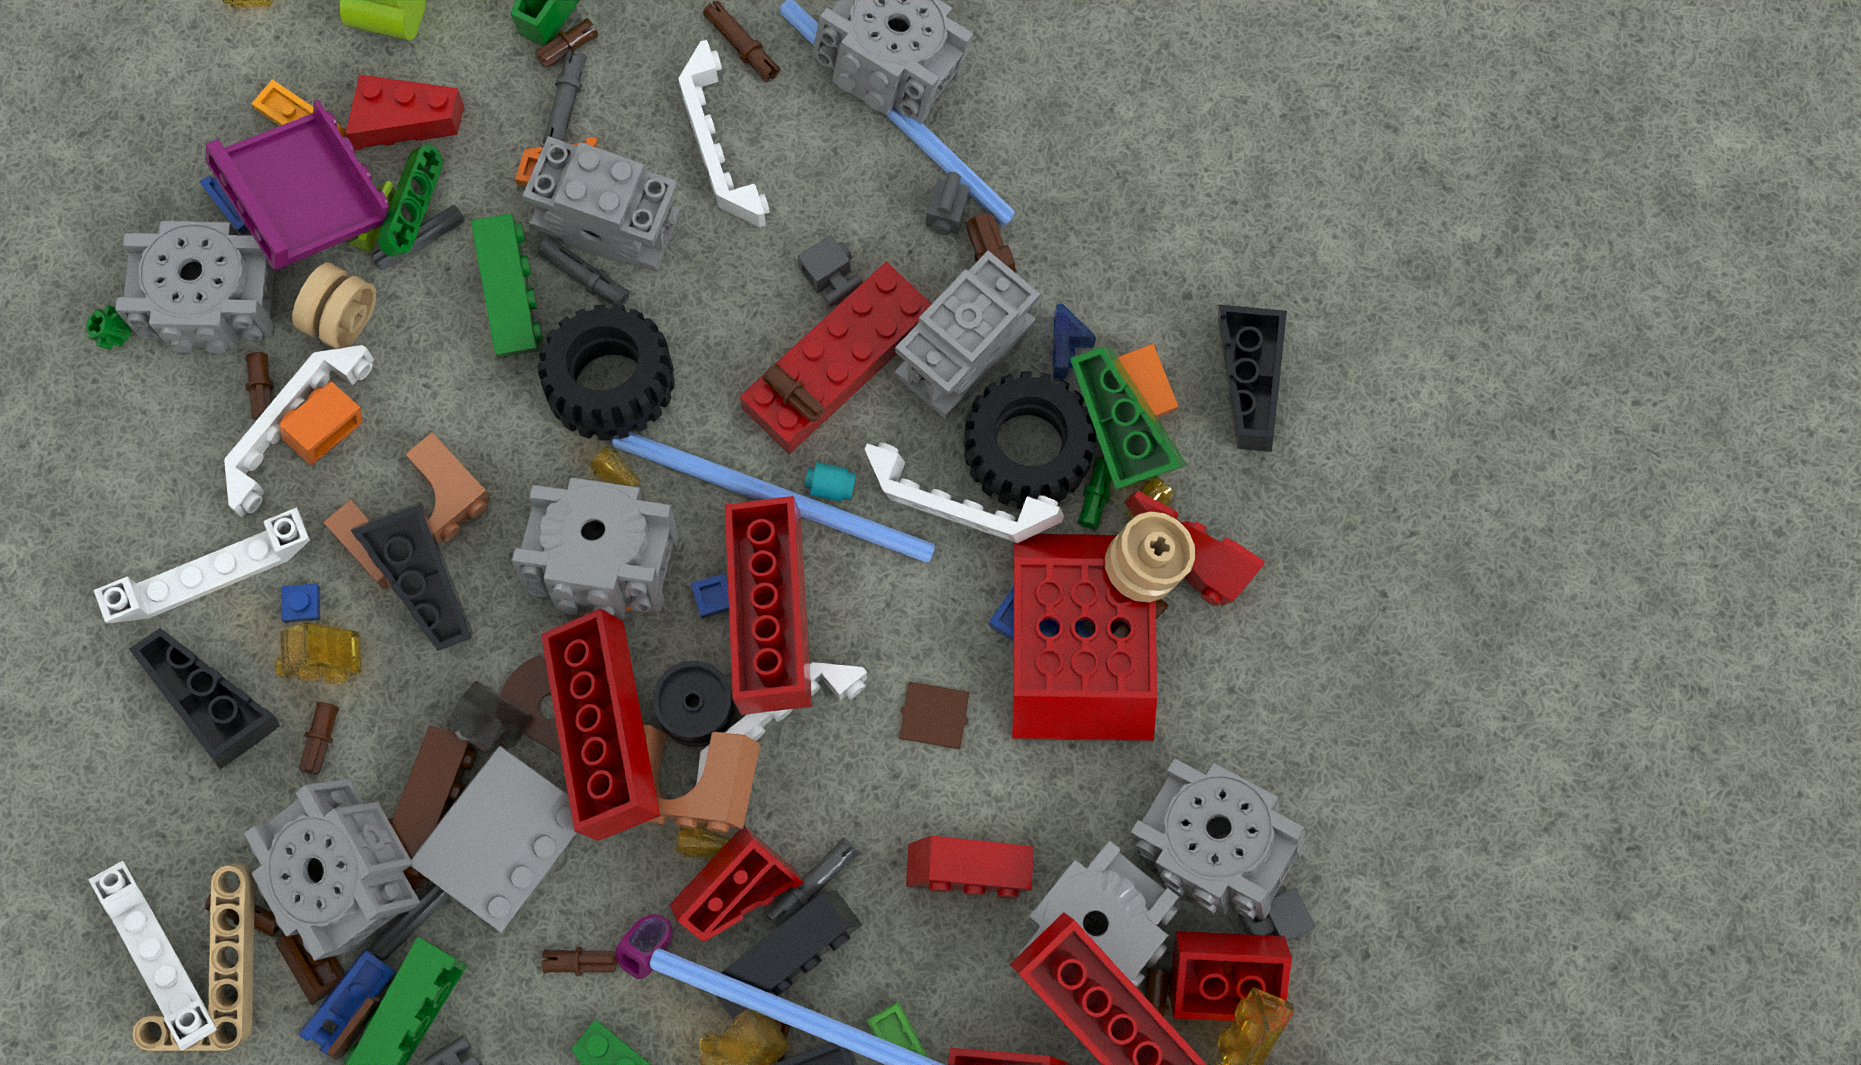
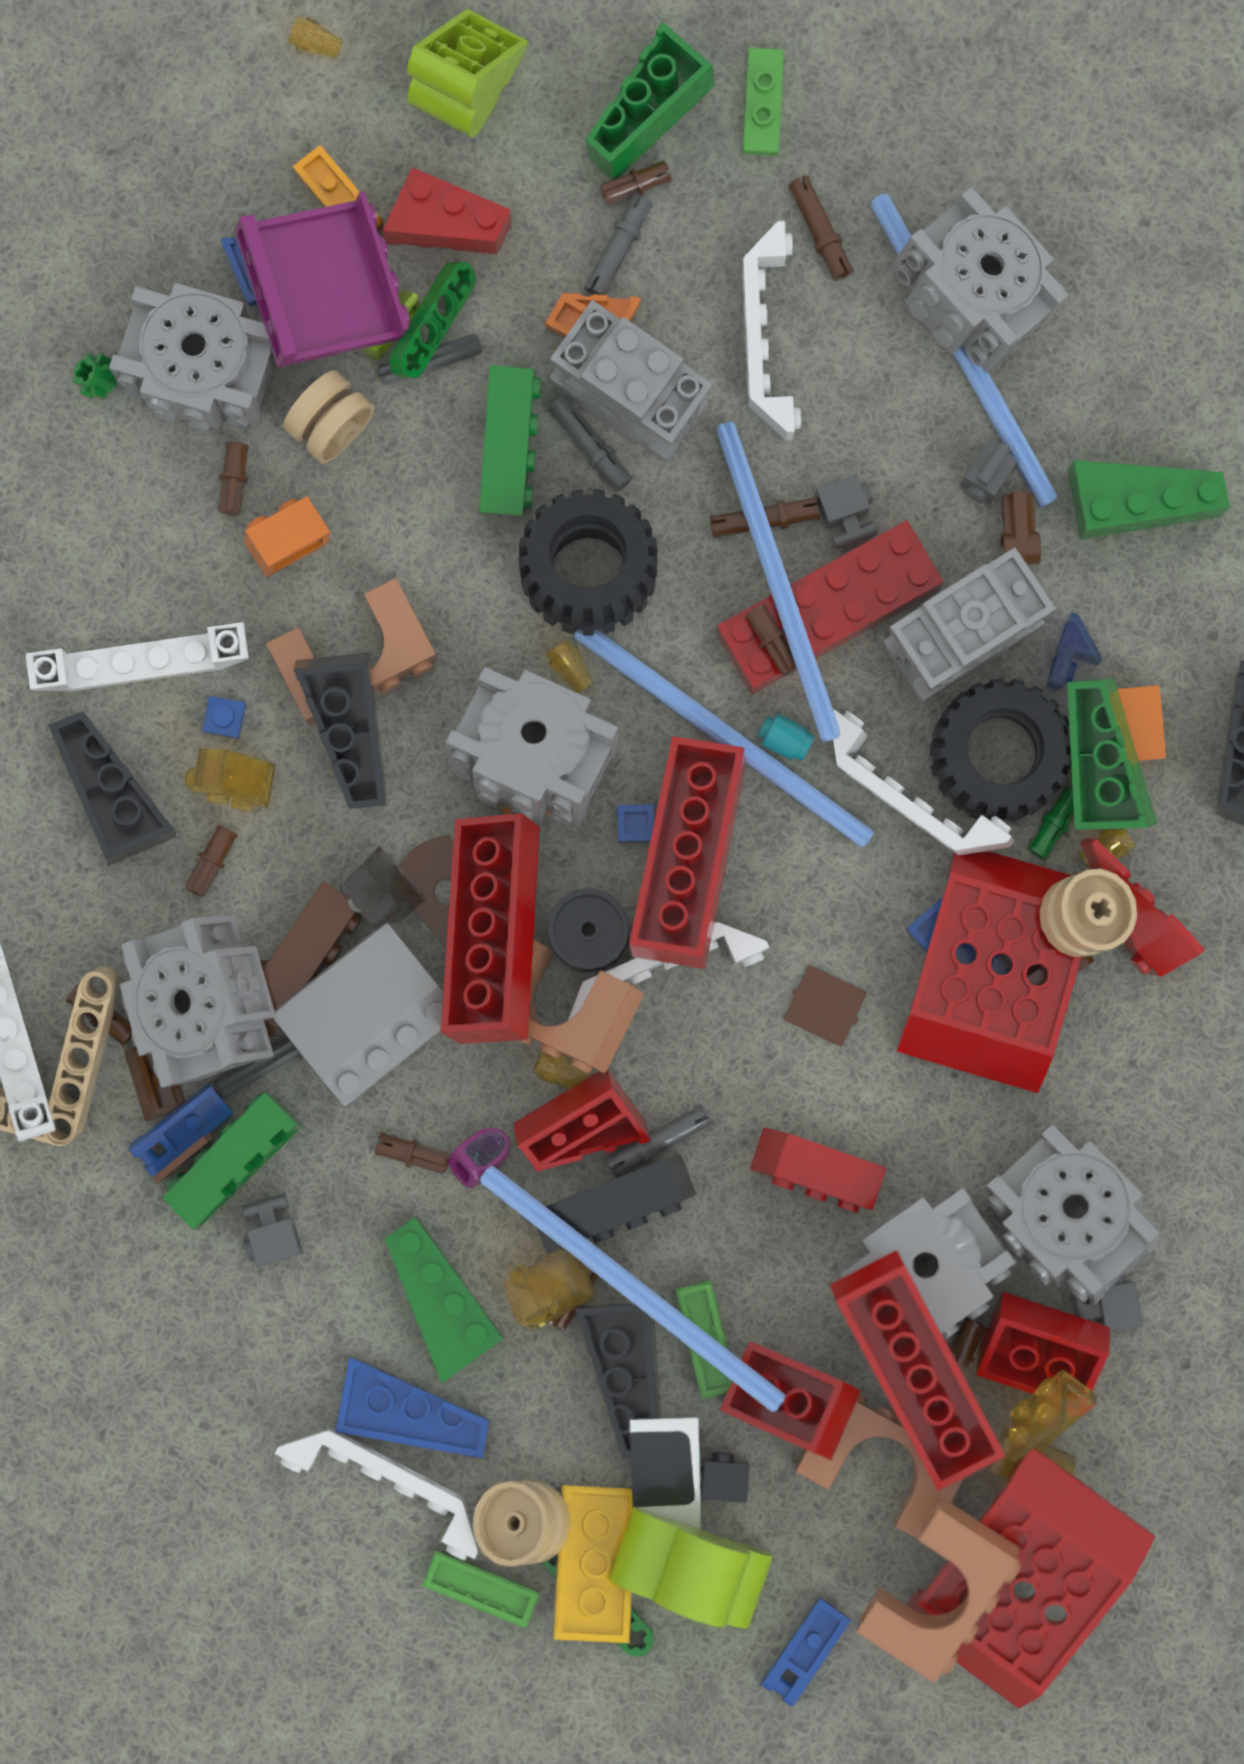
camera: 20 degrees right, 10 degrees up
(348, 363) = (328, 479): white slope -> none
(757, 296) = (777, 515): none -> reddish brown pin
(786, 344) = (778, 582): none -> light blue axle
(1089, 192) = (1139, 497): none -> green wedge

